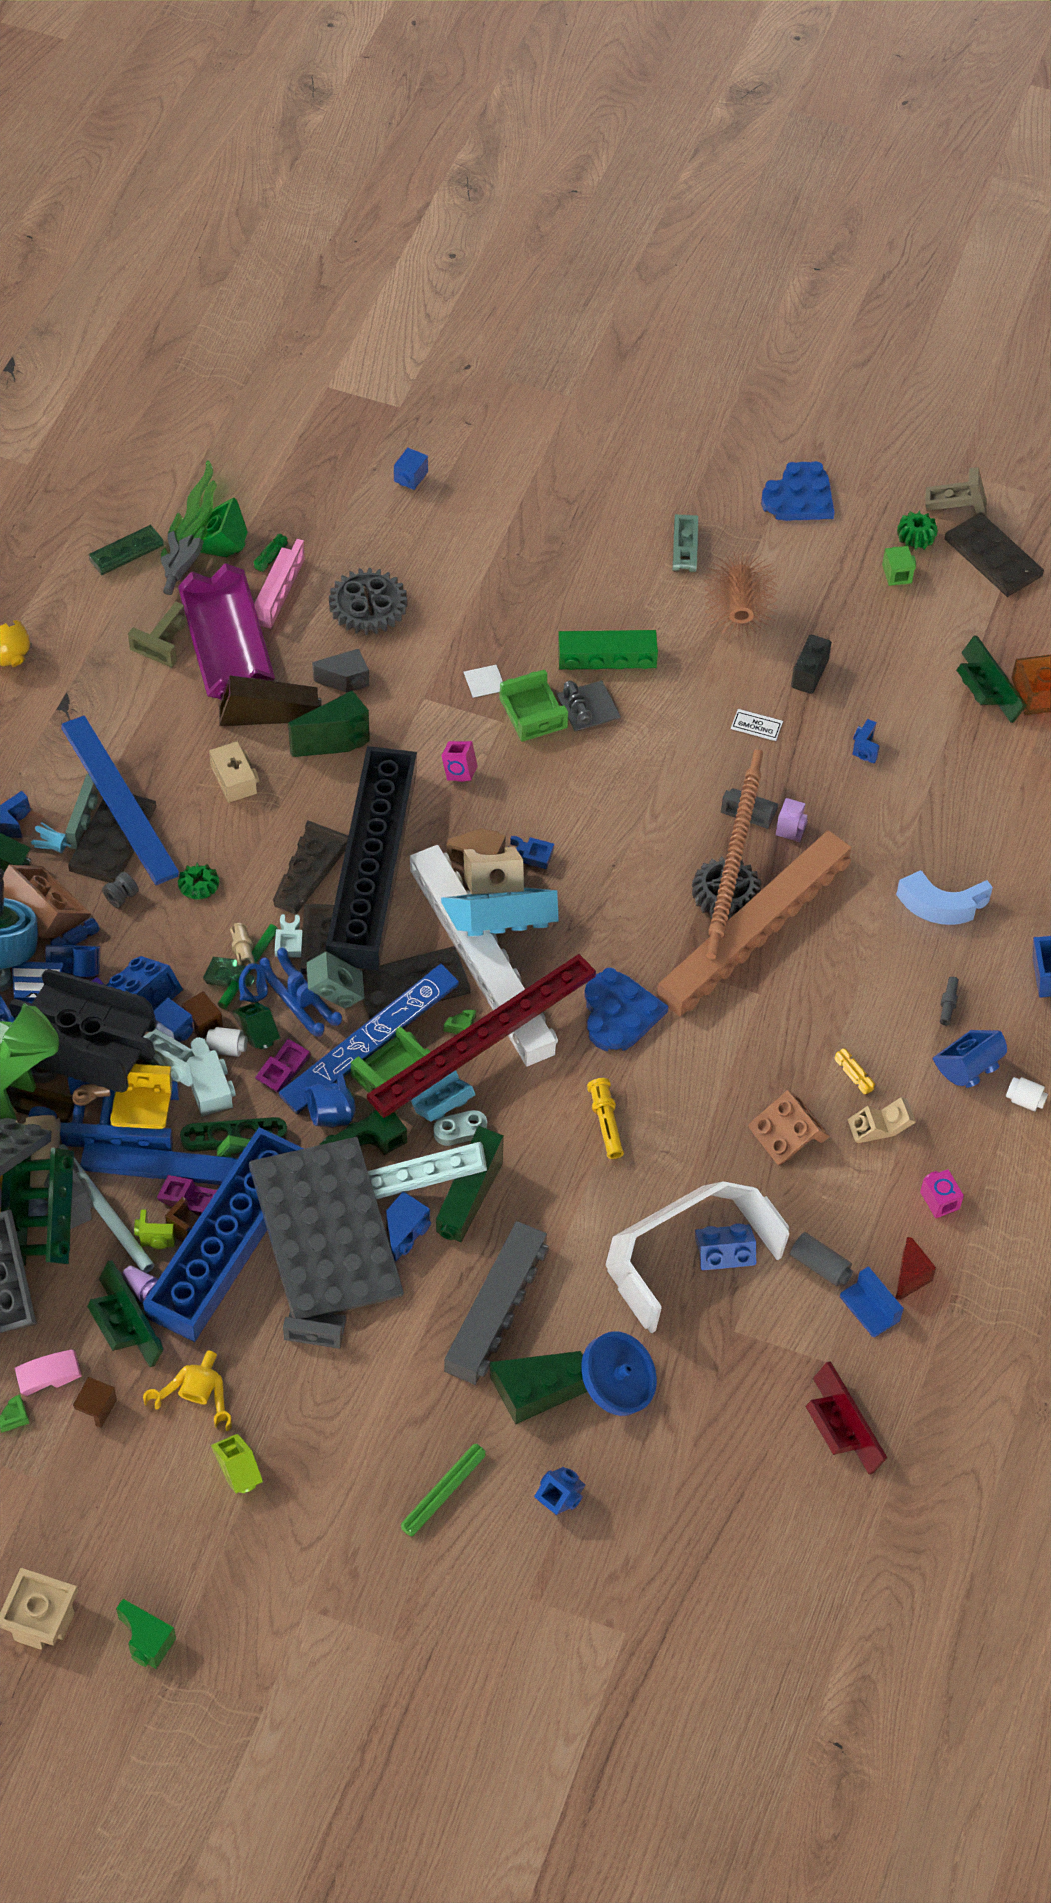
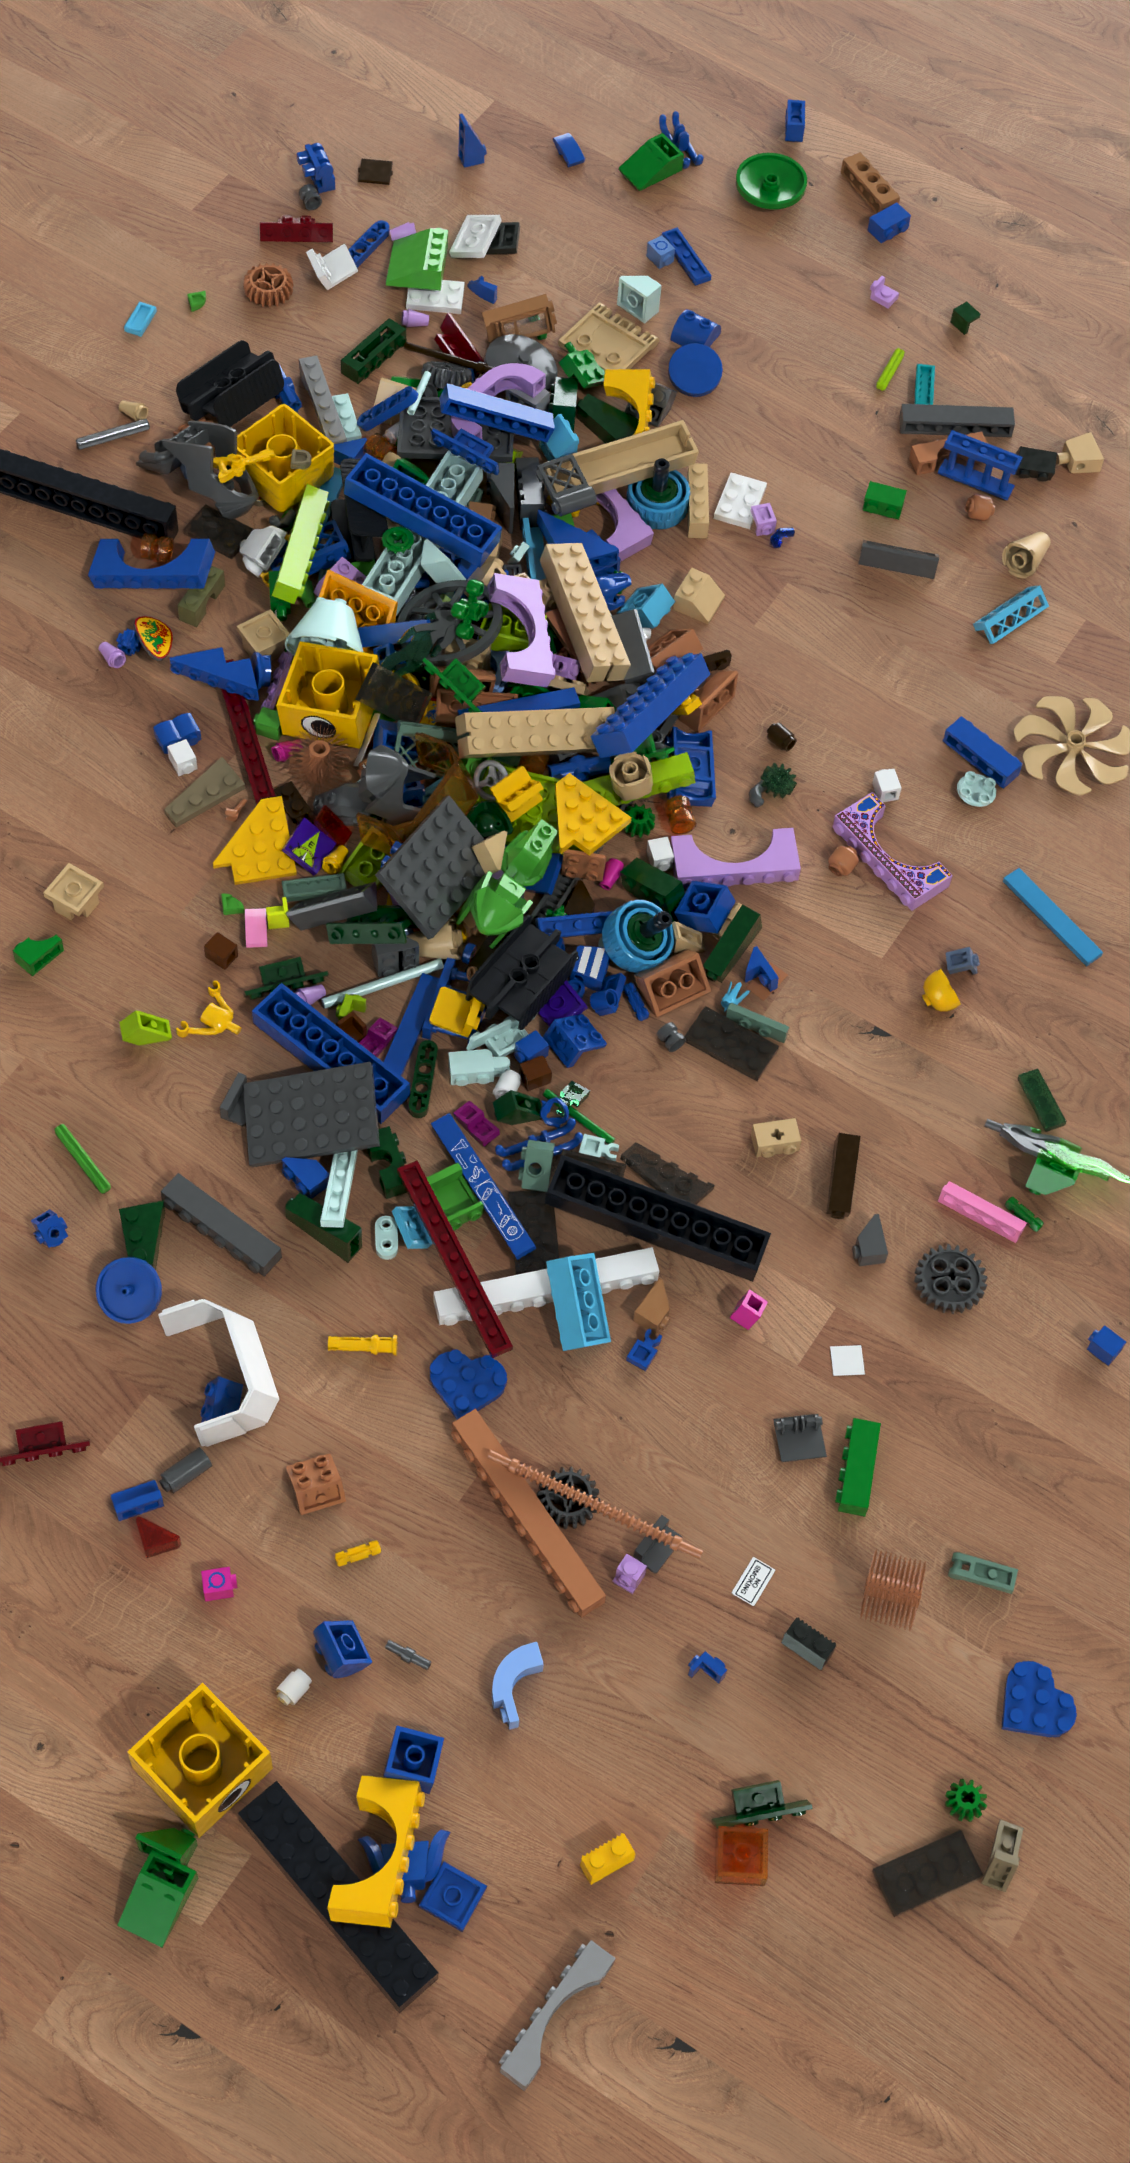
camera: 100 degrees right, 5 degrees up
(21, 1345) = (277, 916): none -> neon yellow panel
(120, 800) = (756, 1045): blue tile -> none
(158, 643) = (936, 1110): olive bracket -> none
(202, 889) = (672, 1104): green gear -> none
(224, 628) = (930, 1158): magenta cylinder -> none
(232, 1145) = (409, 1073): bright green tile -> none
(241, 944) = (594, 1112): tan pin -> none
(330, 728) = (805, 1221): dark green slope -> none
(330, 1104) = (420, 1141): blue helmet -> none
(460, 1021) = (485, 1260): bright green tile -> none
(479, 866) = (612, 1305): tan piece -> none
(532, 706) = (806, 1390): bright green panel -> none
(877, 1124) = (301, 1558): tan slope -> none
(898, 565) = (922, 1767): bright green brick -> none

